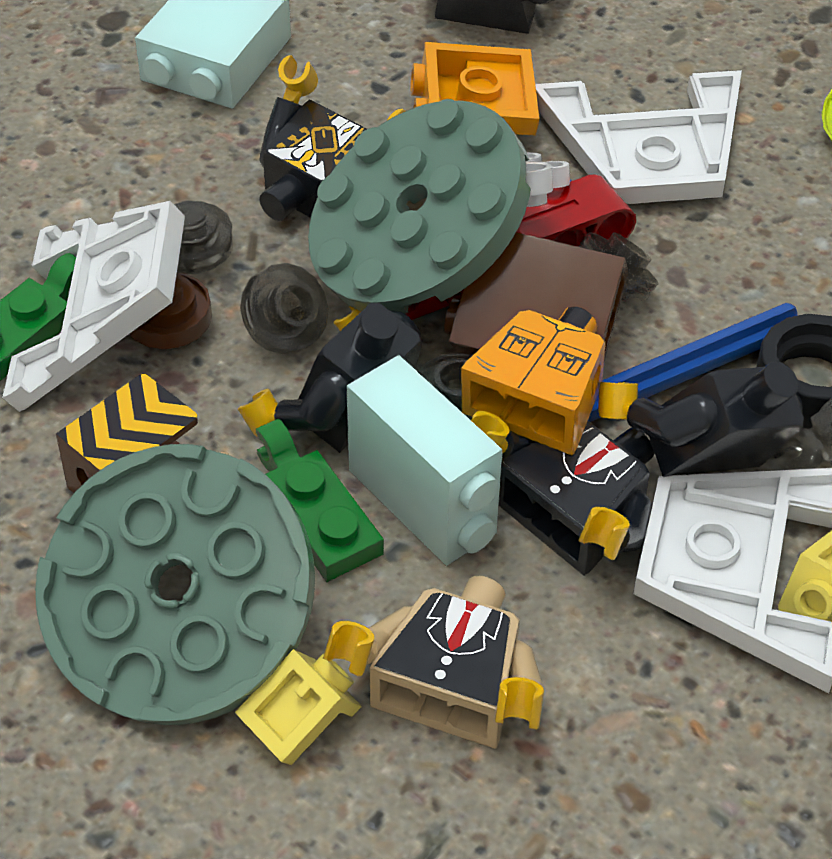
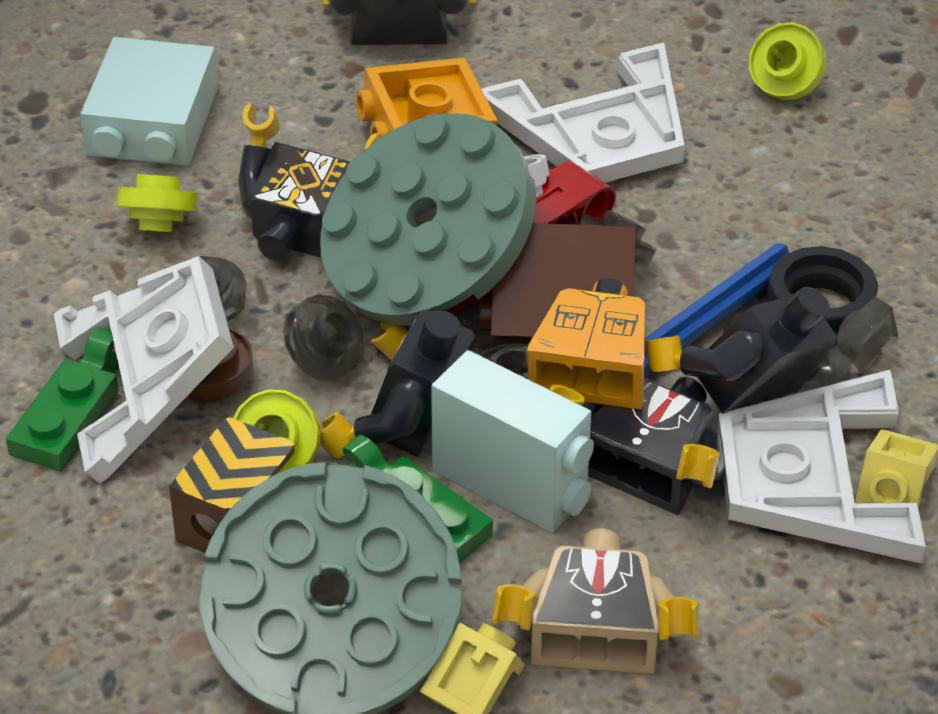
camera: 15 degrees left, 5 degrees down
(178, 138) = (157, 201): none -> neon yellow plate
(208, 389) = (287, 417): none -> neon yellow plate

